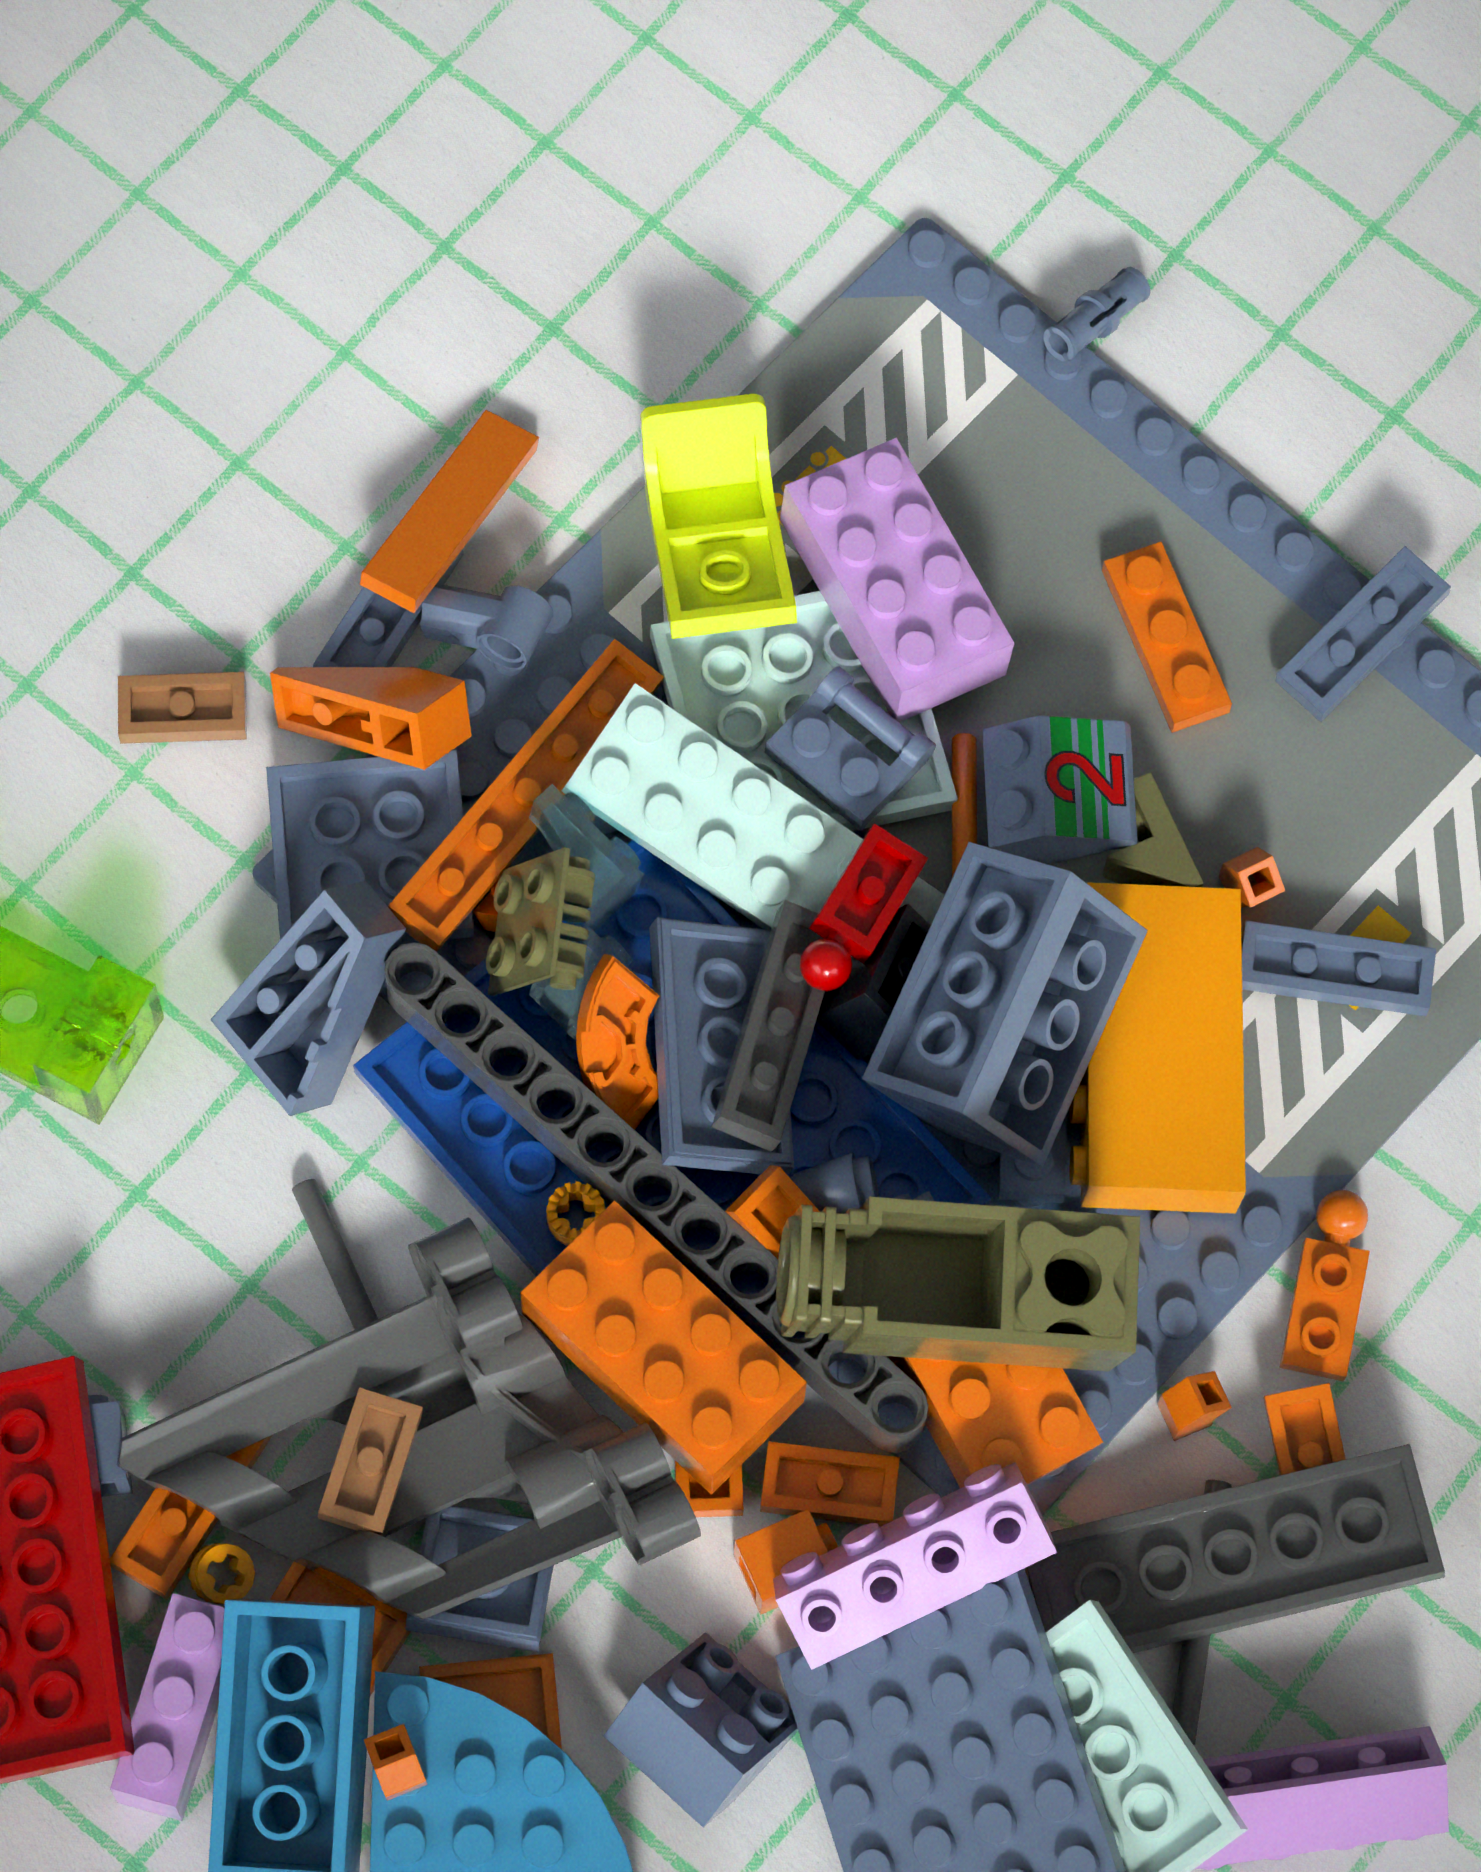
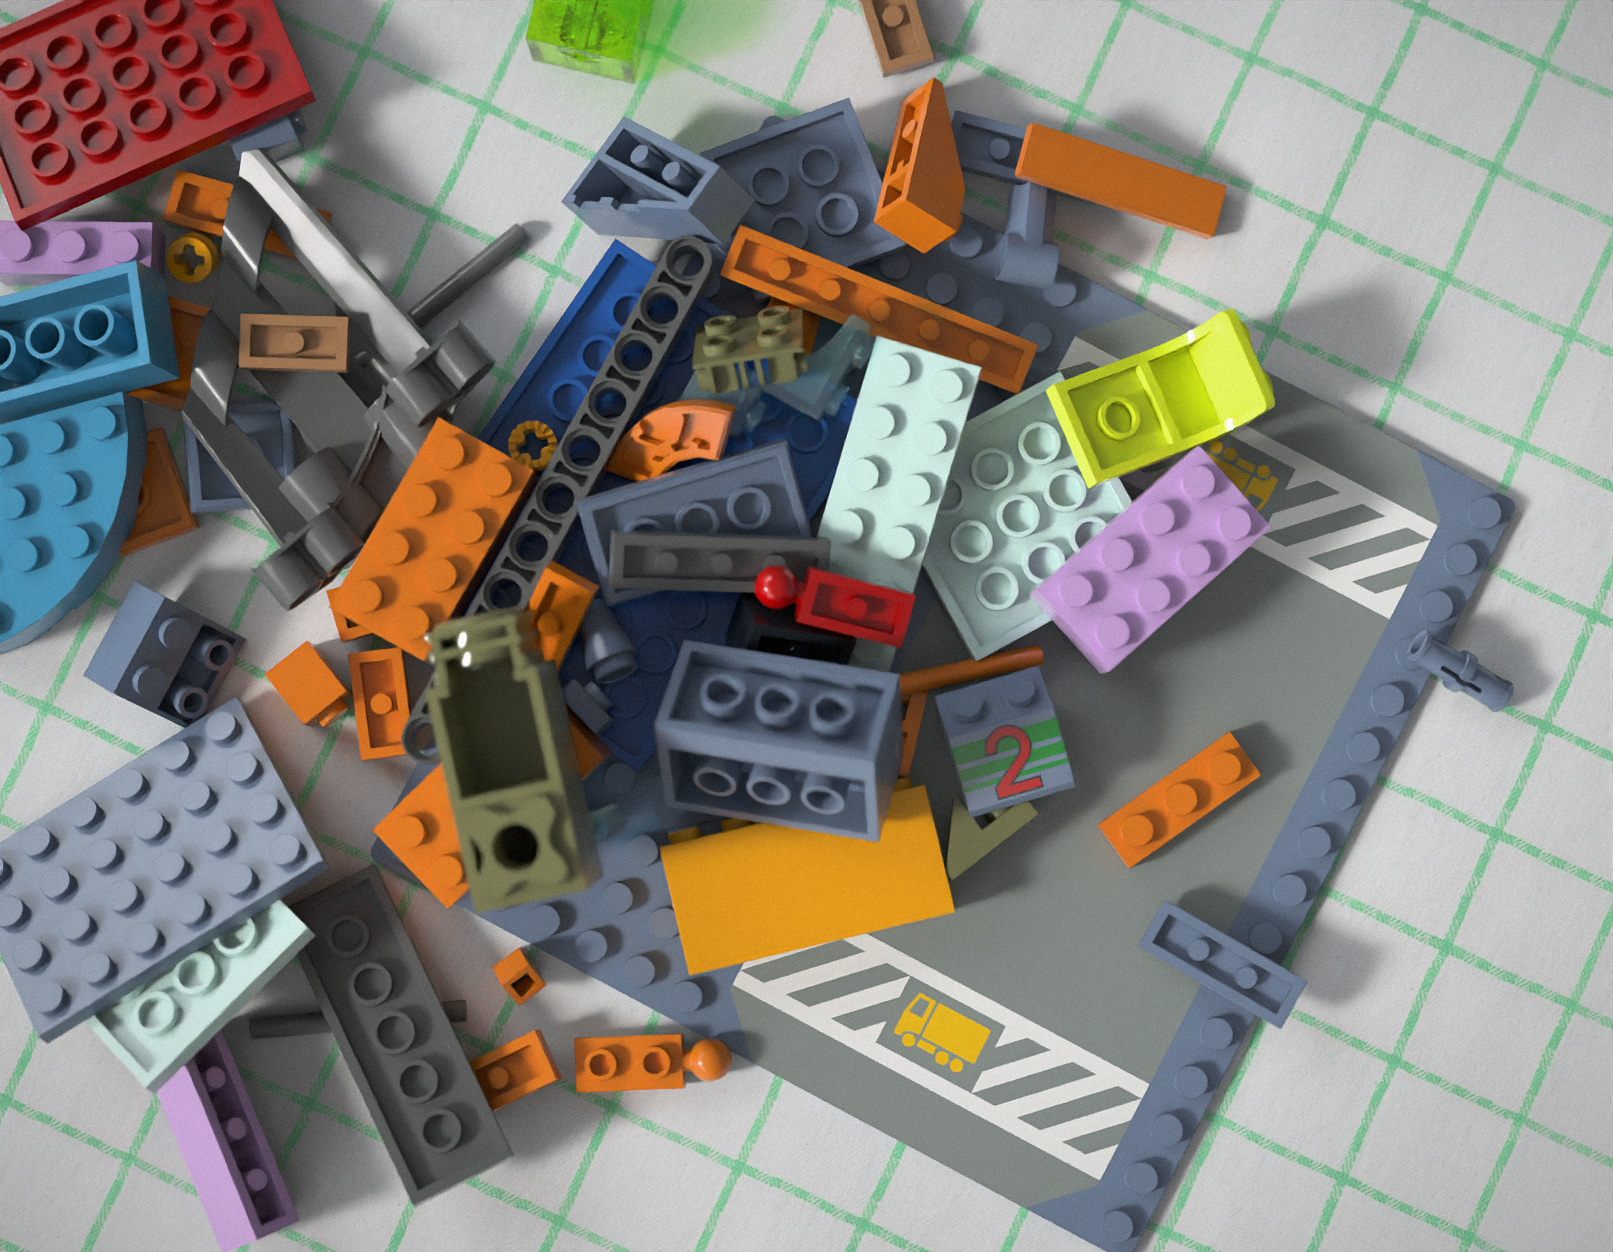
camera: 80 degrees right, 15 degrees up
(395, 1762) = (42, 438): orange piece -> none
(839, 765) = (976, 552): sand blue plate -> none
(912, 1564) = (307, 783): brick -> none
(1264, 870) = (983, 916): orange piece -> none
(1337, 968) = (918, 1007): sand blue plate -> none

